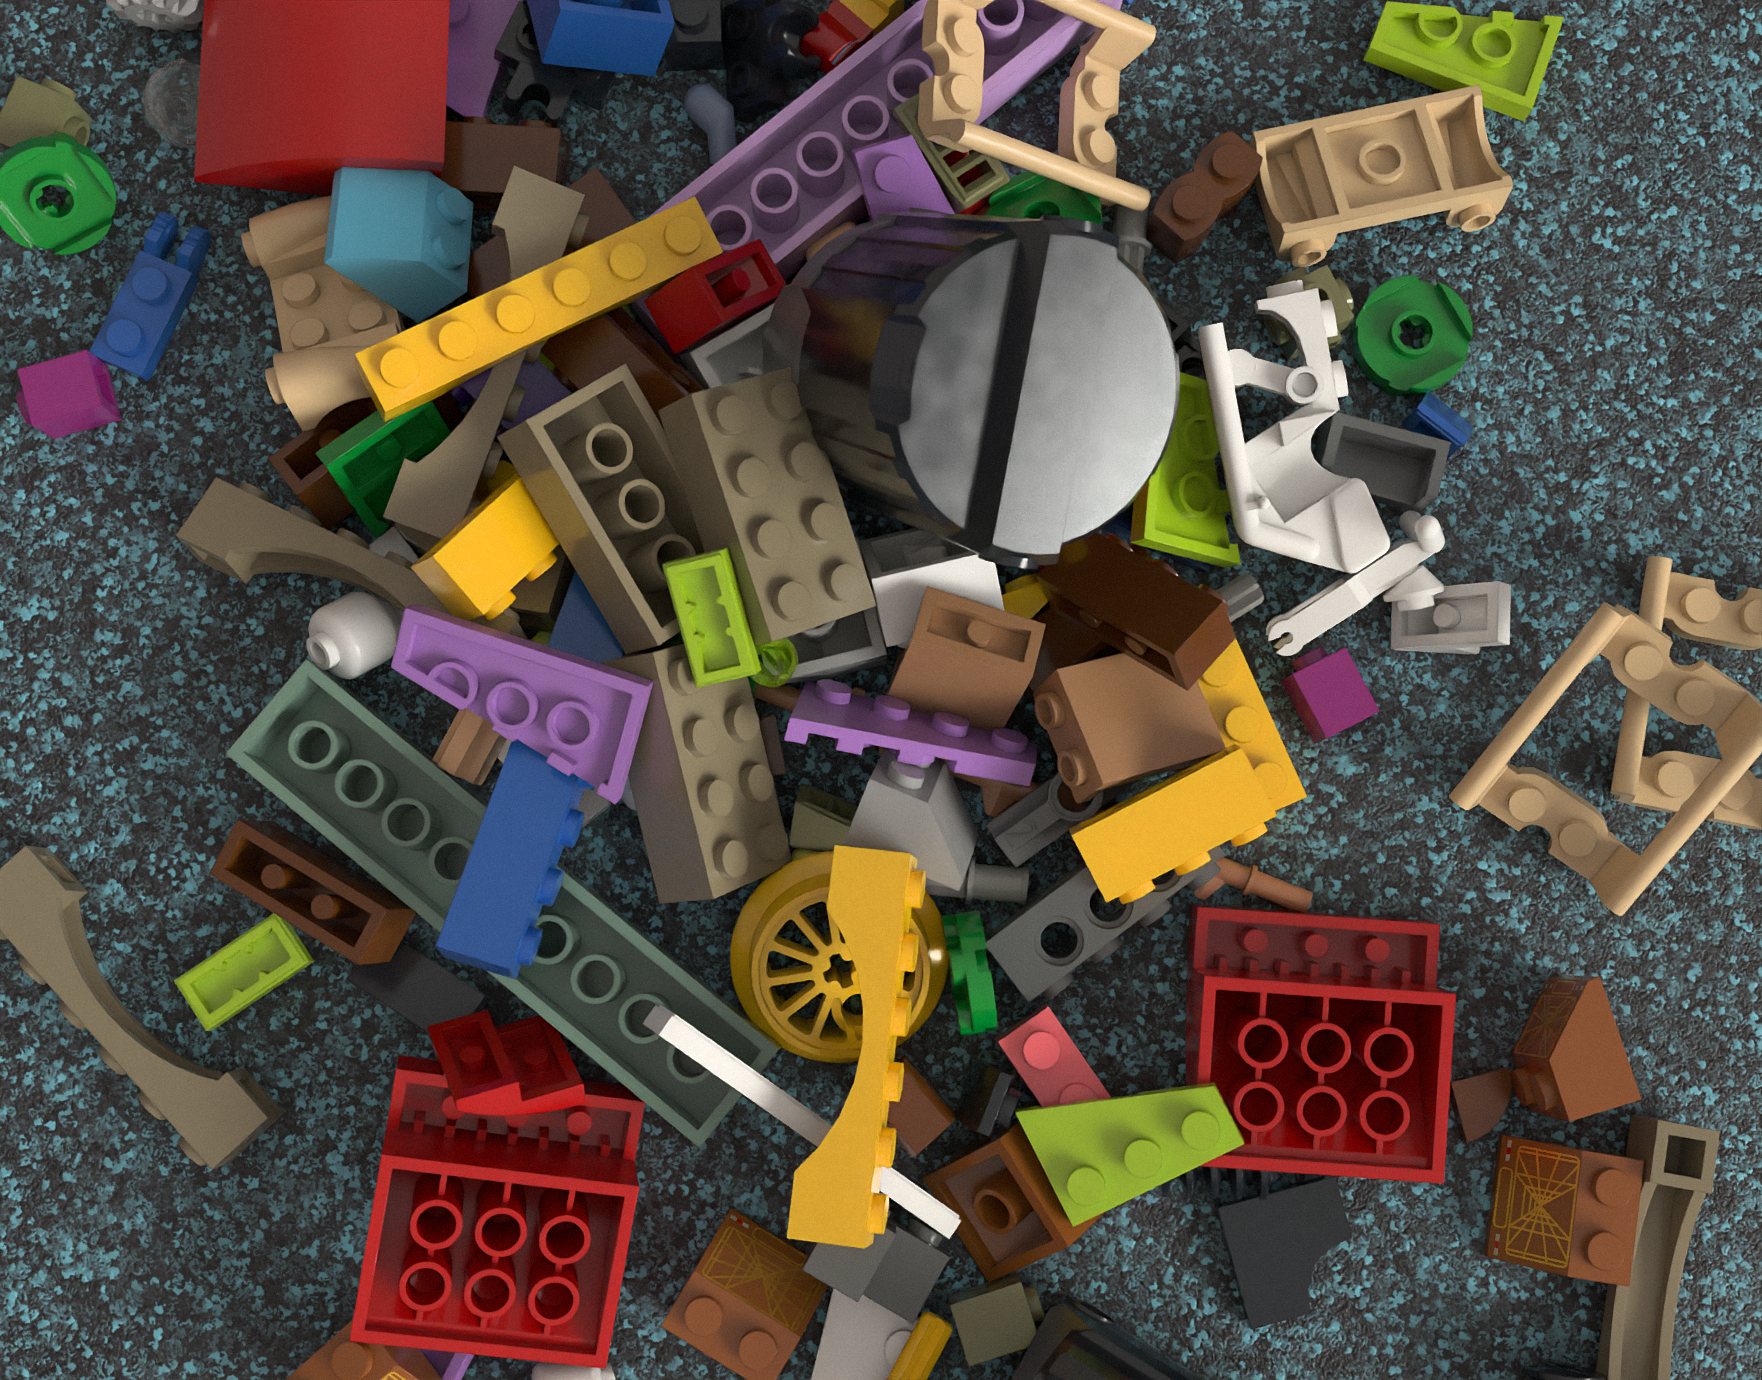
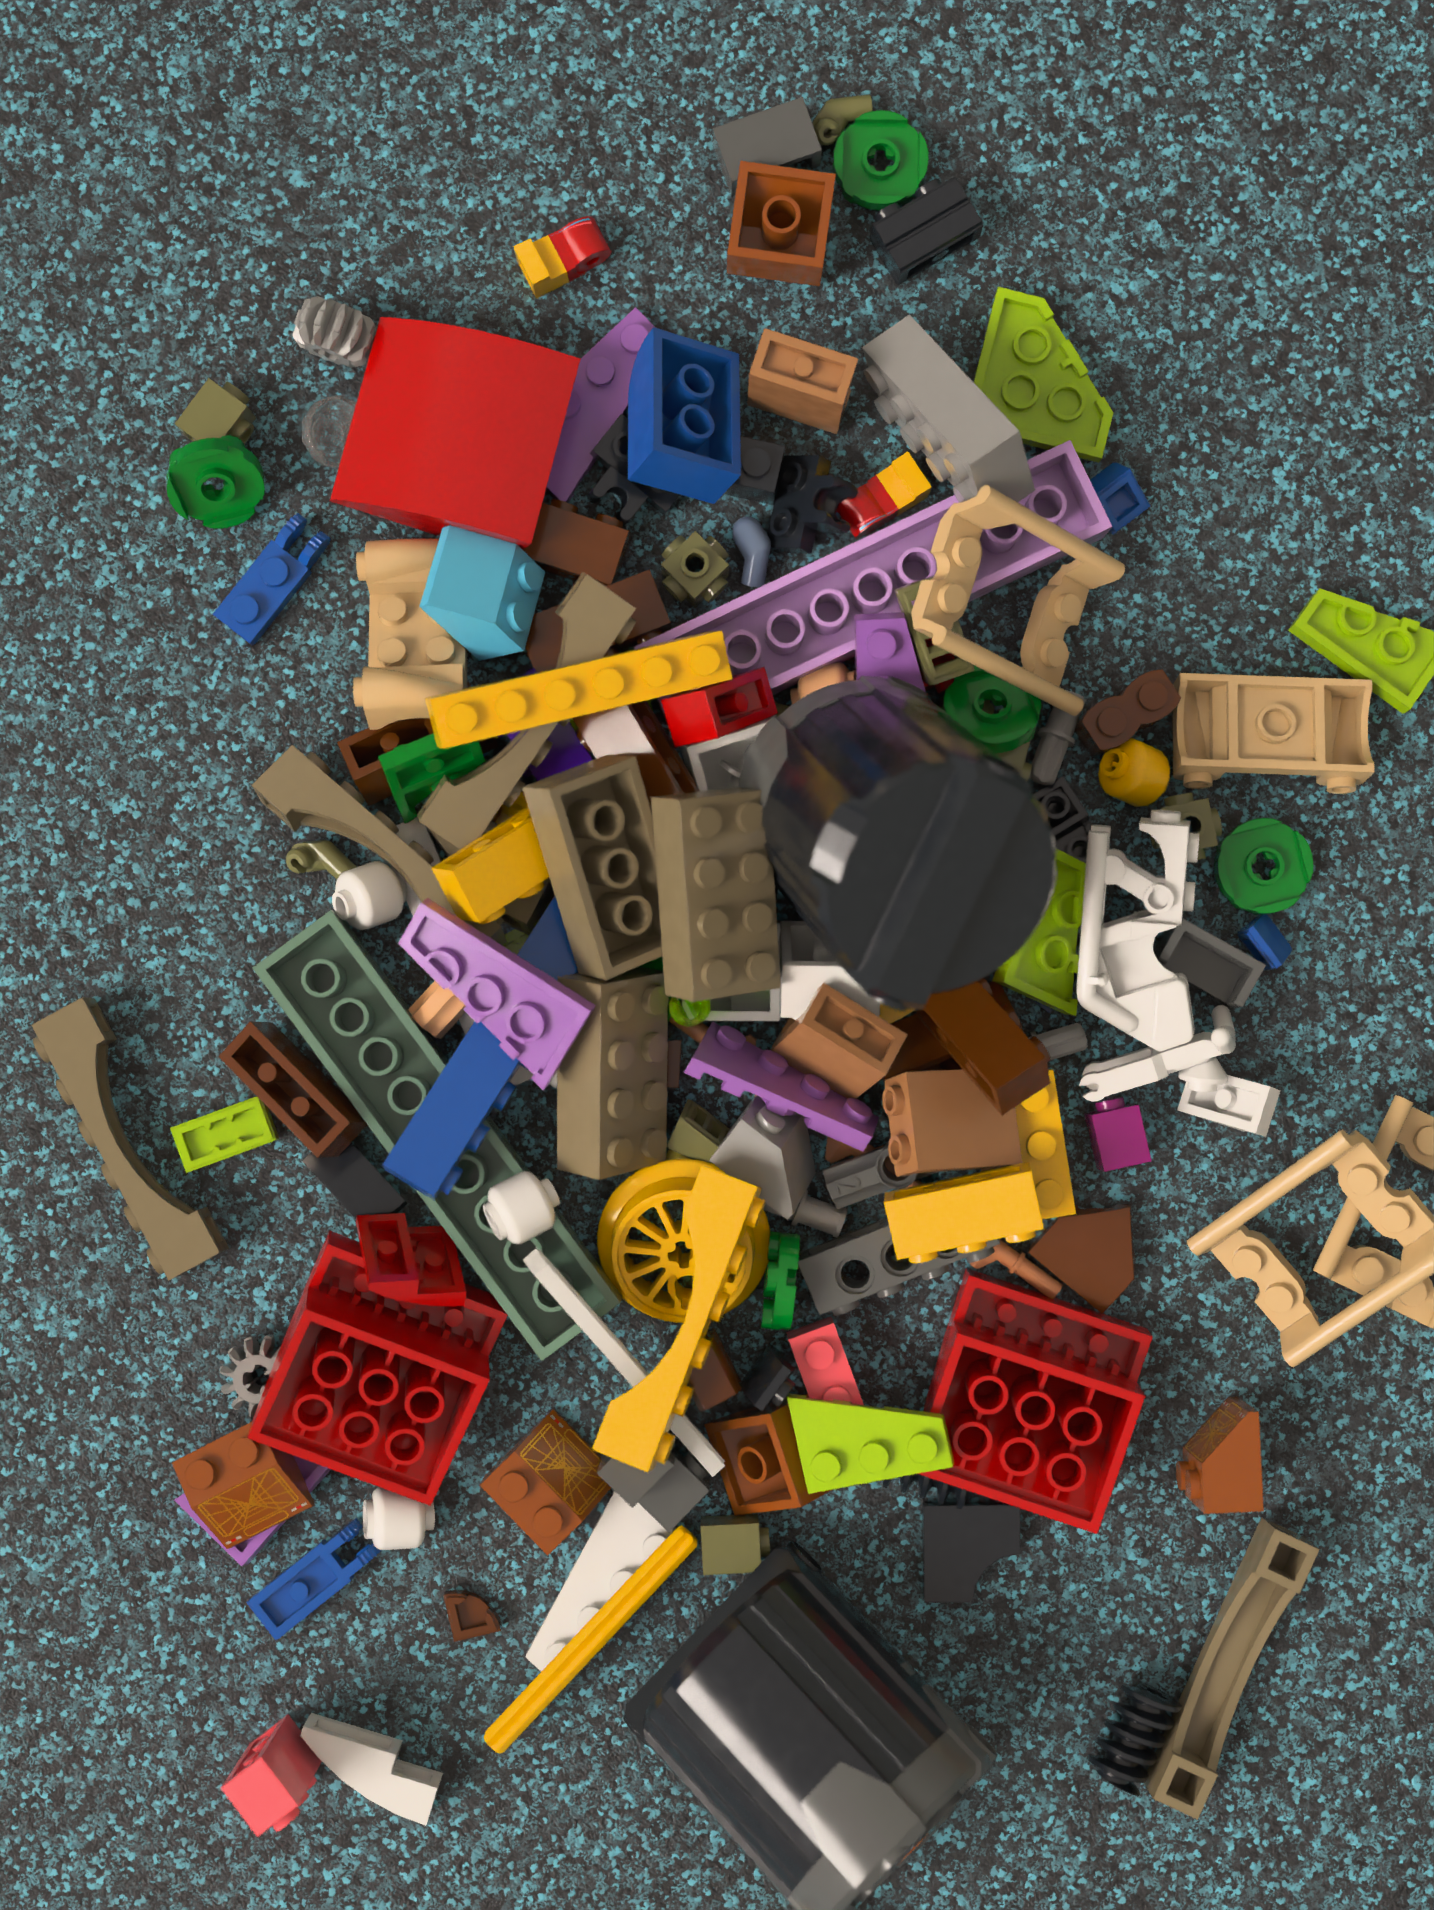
camera: 15 degrees right, 5 degrees up
(67, 395) = (189, 645): magenta brick -> none
(279, 608) = (317, 856): none -> olive arm
(333, 1263) = (241, 1371): none -> light grey gear
(625, 960) = (521, 1207): none -> white head
(655, 173) = (695, 585): none -> olive brick
(712, 617) = (652, 969): lime plate -> none
(1231, 262) = (1134, 773): none -> yellow head
(1335, 844) = (1090, 1252): none -> reddish brown slope
(1480, 1101) = (1147, 1477): reddish brown tile -> none
(1564, 1209) = (1187, 1575): dark orange slope -> none

